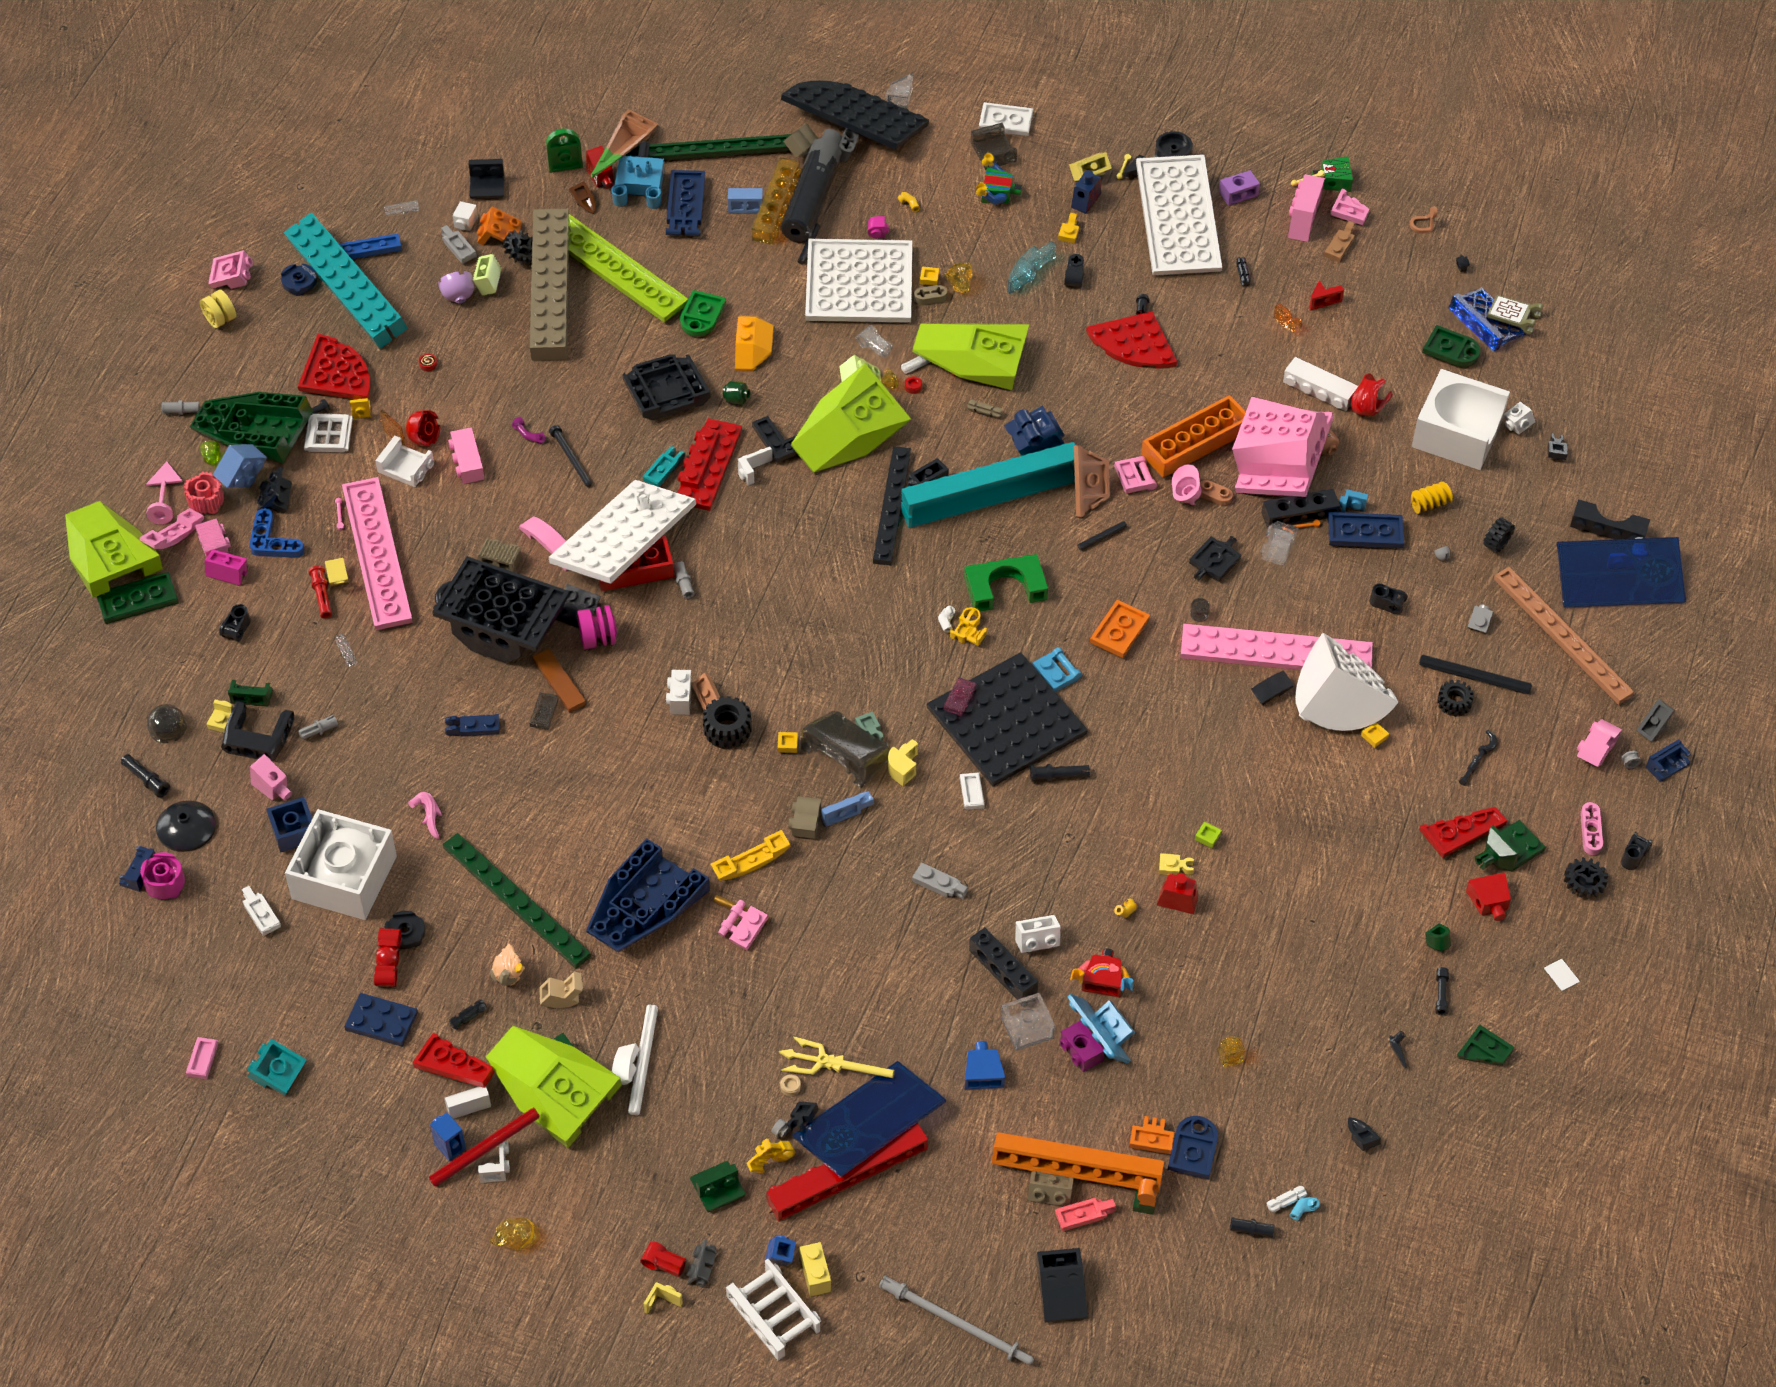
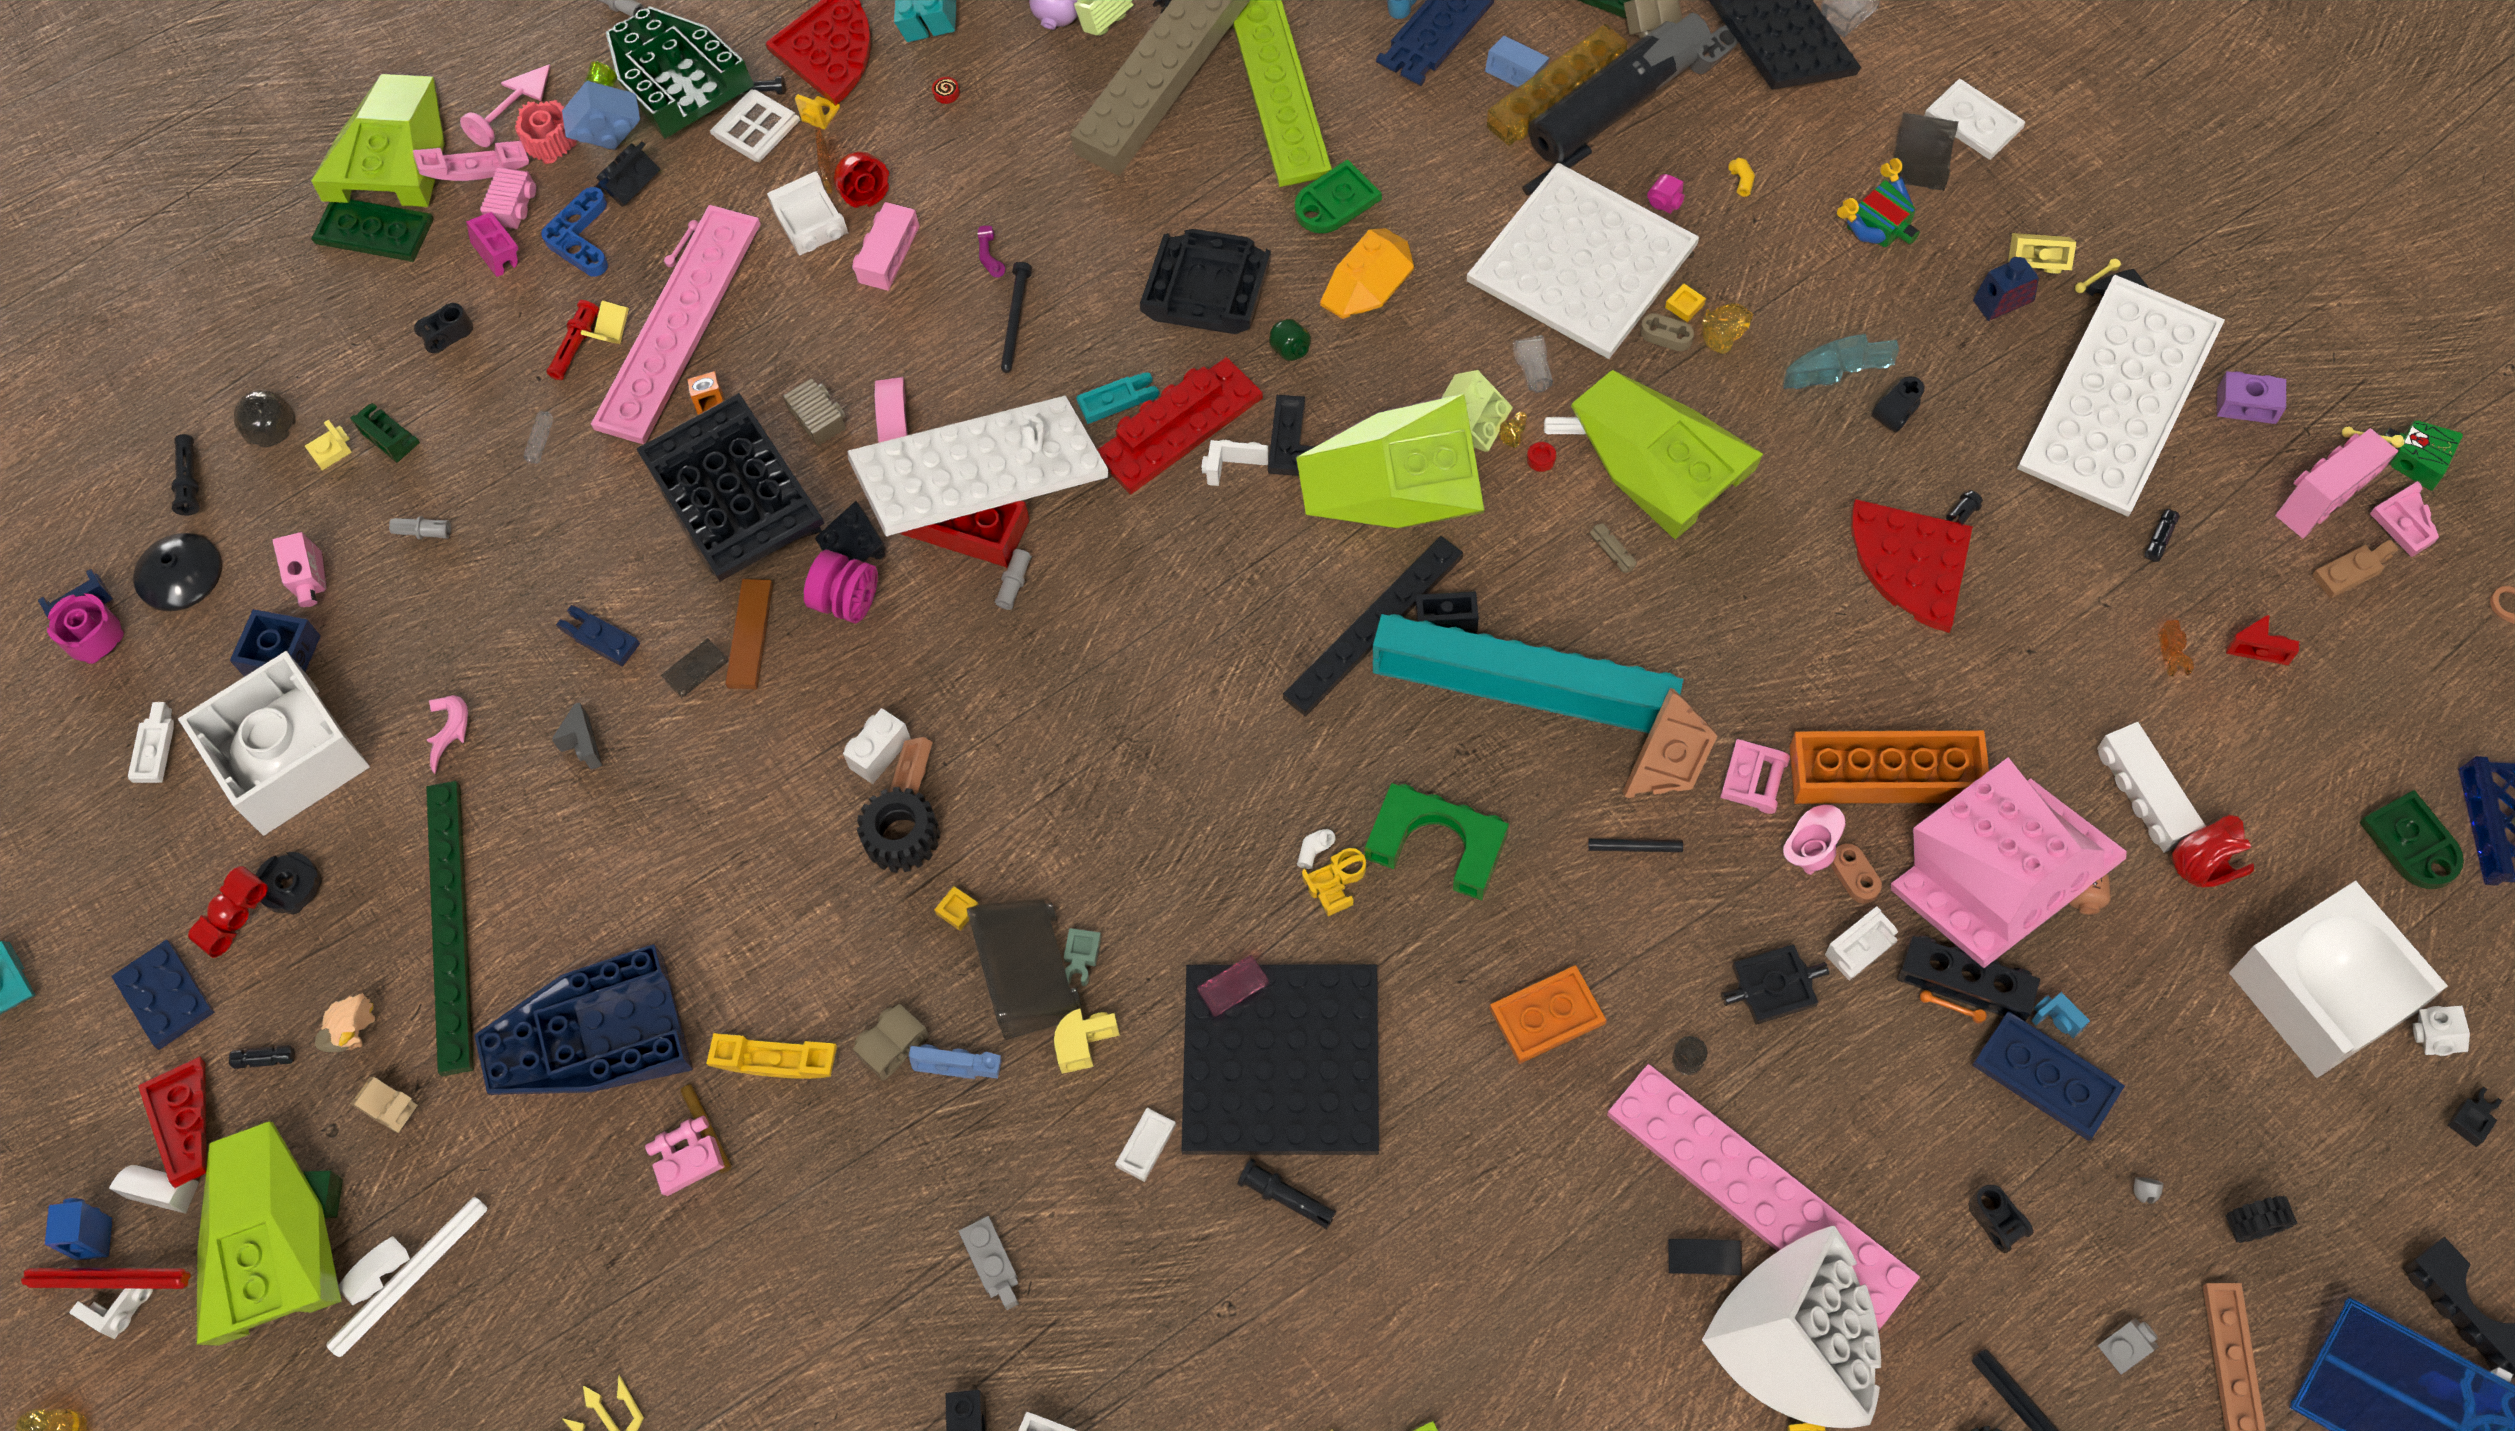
camera: 40 degrees right, 10 degrees up
(254, 744) = (330, 508): black connector -> none
(431, 577) = (705, 391): none -> orange brick
(510, 772) = (578, 734): none -> dark grey slope
(1034, 431) = (1643, 631): dark blue piece -> none
(1052, 673) = (1398, 1024): dark azure plate -> none
(1069, 231) = (1942, 336): yellow plate -> none
(1173, 144) = (2190, 281): black wheel -> none
(1241, 520) = (1862, 943): none -> white hinge
(1279, 542) = (1891, 1017): clear brick -> none
(1431, 497) = (2195, 1080): yellow piece -> none

